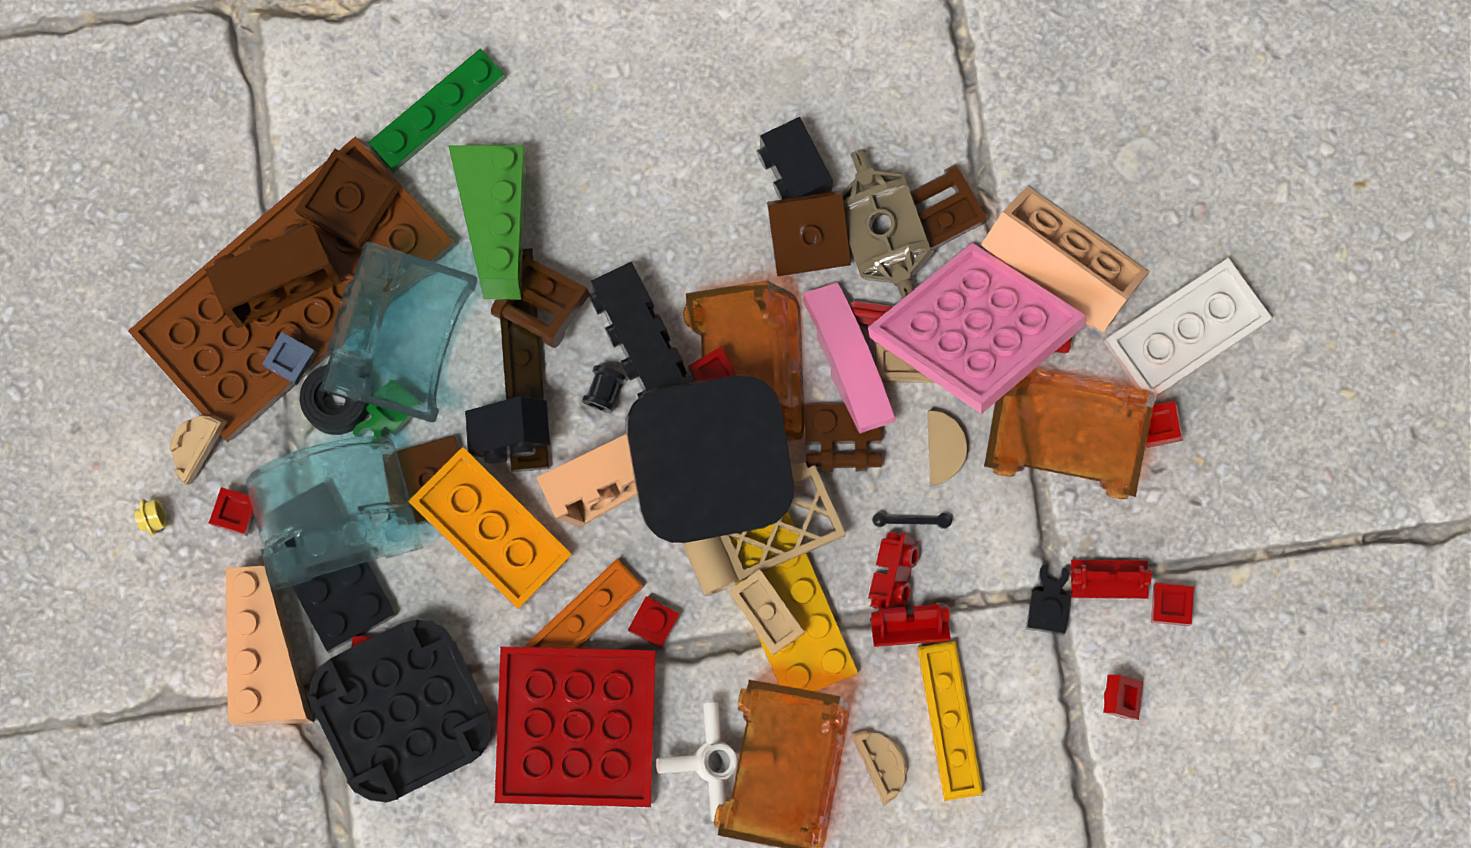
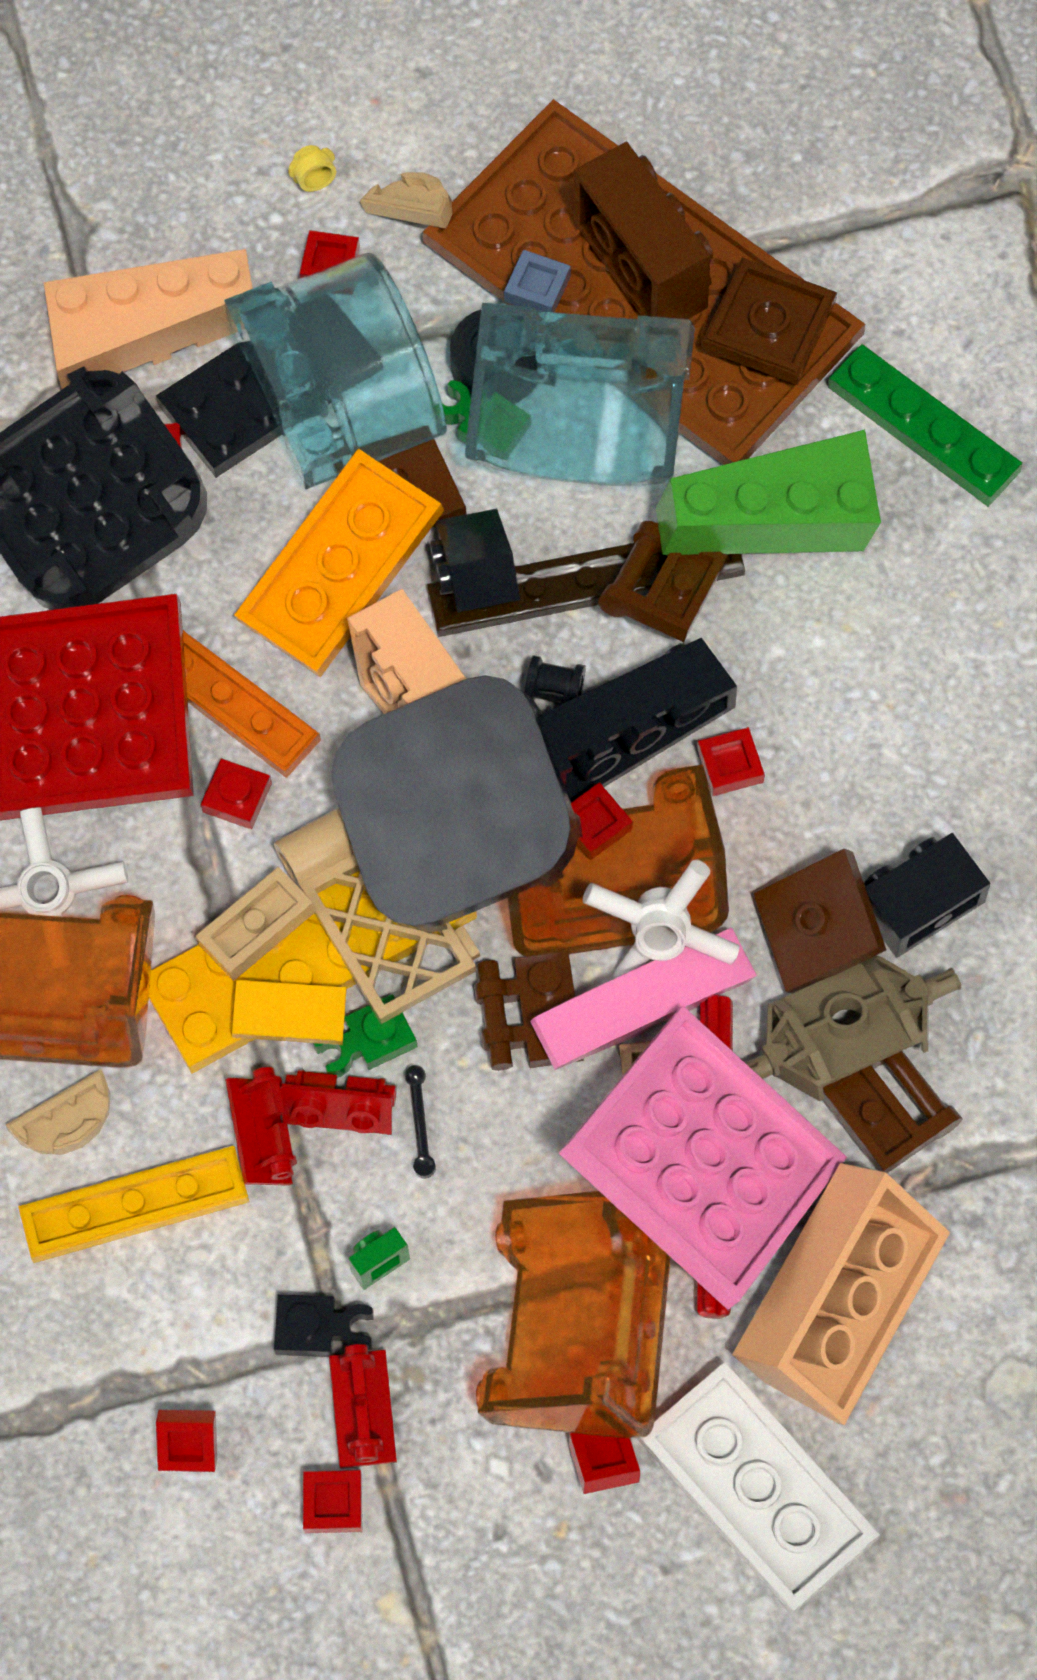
camera: 85 degrees right, 10 degrees down
(679, 276) = (731, 761): none -> red plate
(805, 334) = (662, 921): none -> white bar
(831, 597) = (289, 1012): none -> yellow tile
(849, 549) = (370, 1040): none -> green plate
(946, 447) = (527, 1155): tan tile -> none
(1008, 556) = (378, 1256): none -> green plate

